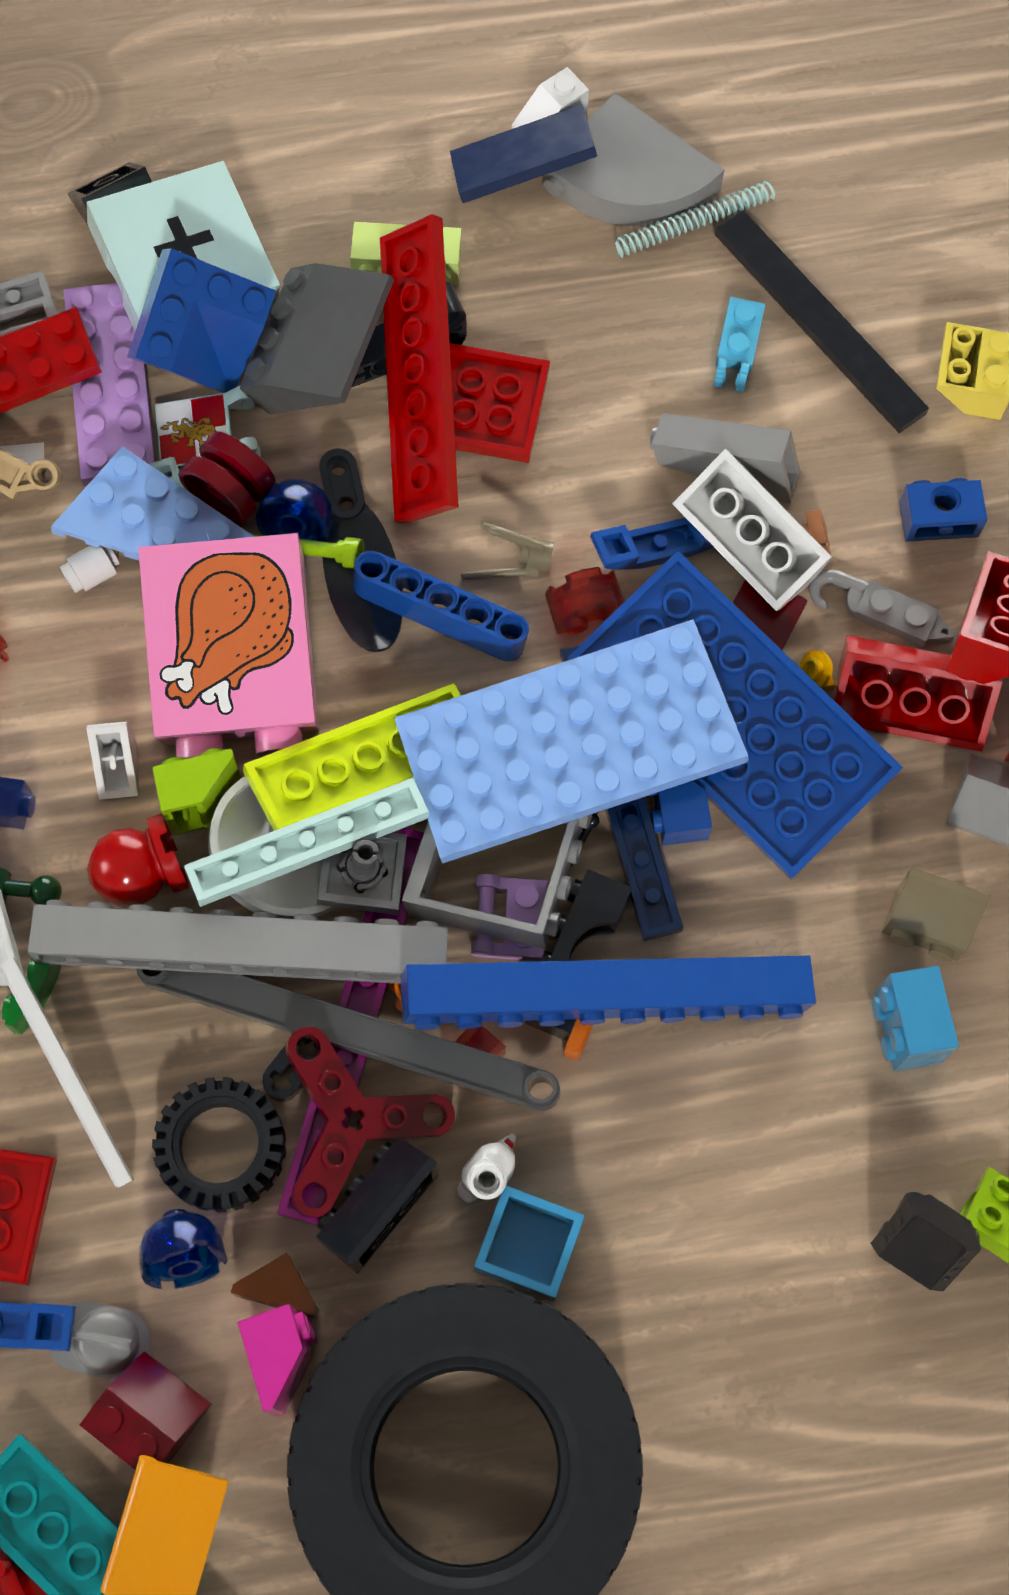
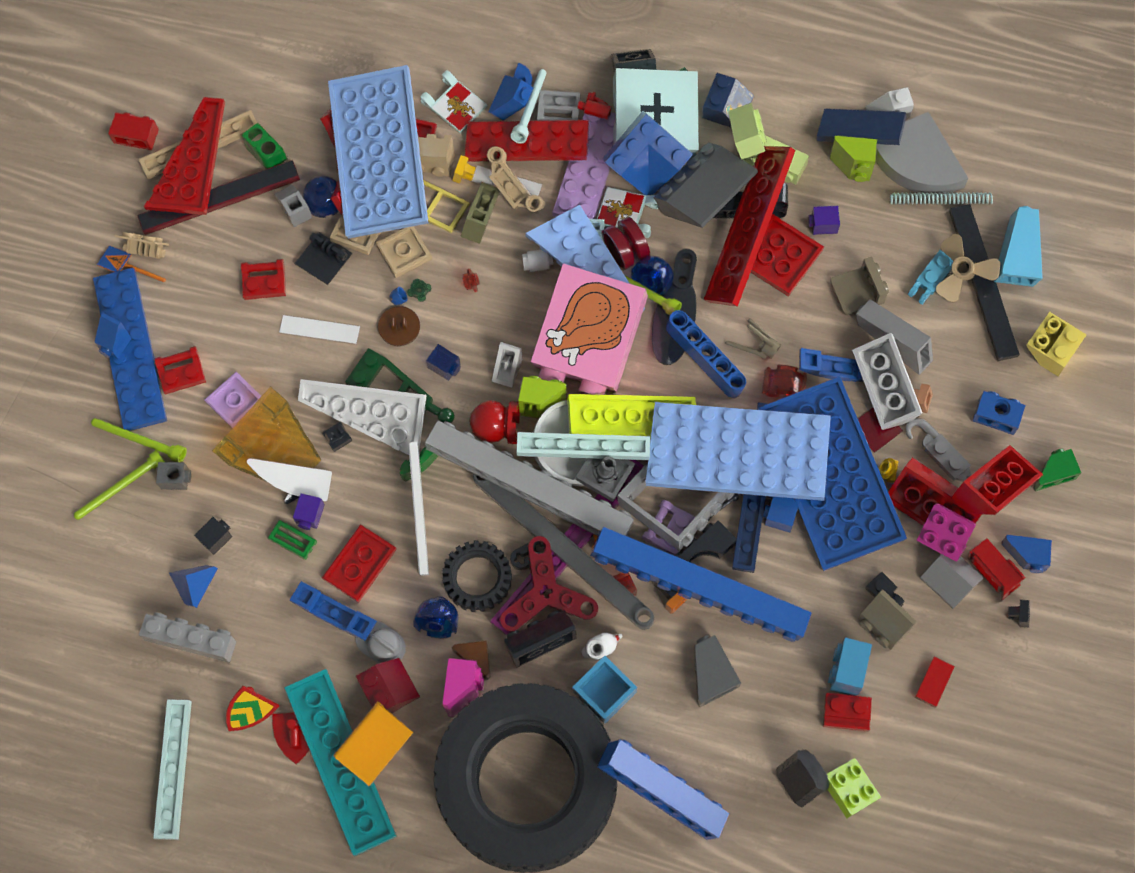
camera: 30 degrees right, 0 degrees up
(78, 282) = (595, 106): none -> red plant
(291, 197) = (724, 96): none -> dark blue slope
(348, 222) = (747, 130): none -> yellowish green brick
(531, 320) = (824, 220): none -> dark purple brick
(533, 203) = (854, 157): none -> lime slope
(635, 401) = (860, 286): none -> dark tan bracket
(692, 1126) = (713, 671): none -> dark grey slope
(711, 1375) = (663, 789): none -> brick
(755, 286) = (951, 286): none -> tan piece
(854, 248) = (1021, 249): none -> medium azure slope
(895, 862) = (882, 582): none -> black plate
(939, 1095) = (847, 712): none -> red plate
(962, 730) = (946, 532): none -> dark pink bracket

